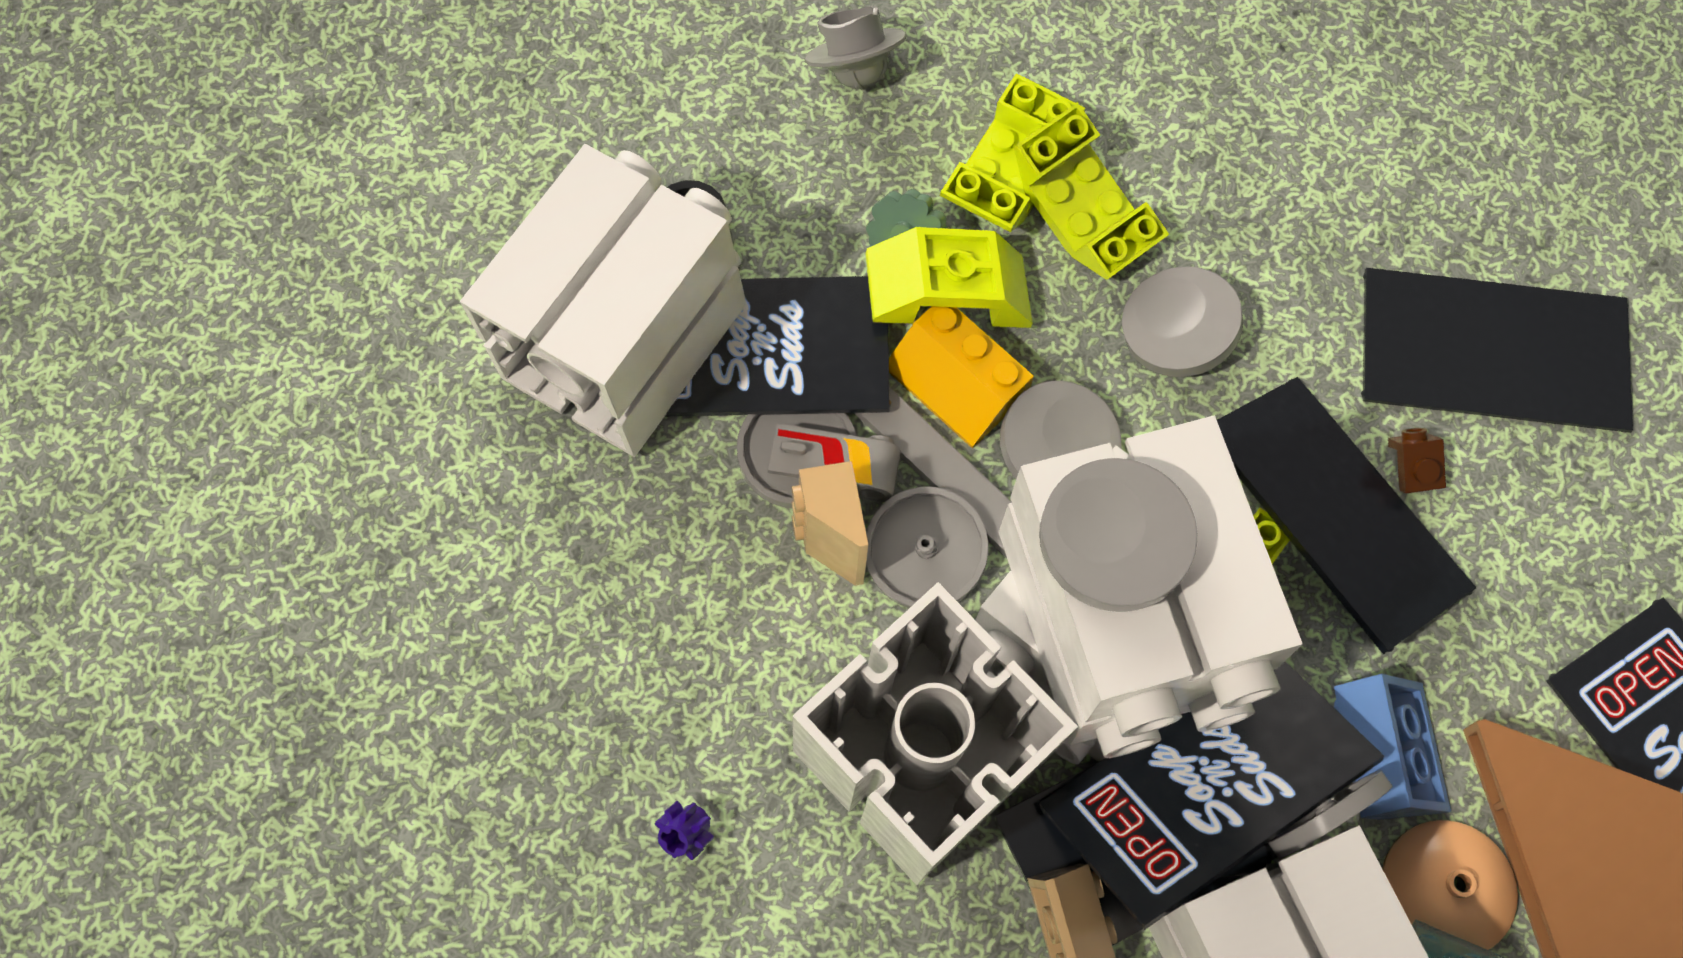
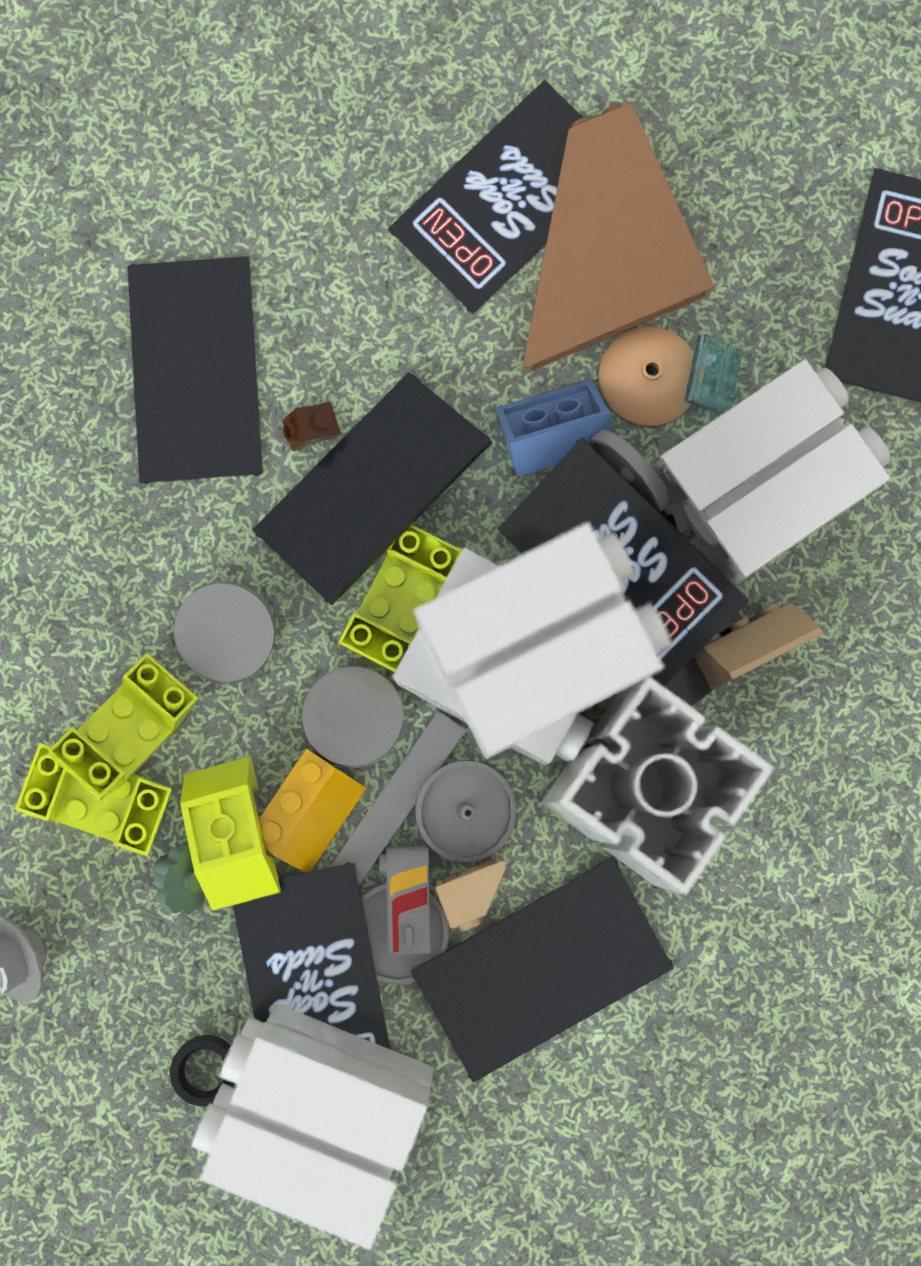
camera: 95 degrees left, 15 degrees up
(684, 830) = (731, 956): dark purple gear -> none
(717, 604) = (542, 969): none -> black piece
(1118, 534) = (539, 674): light grey piece -> none

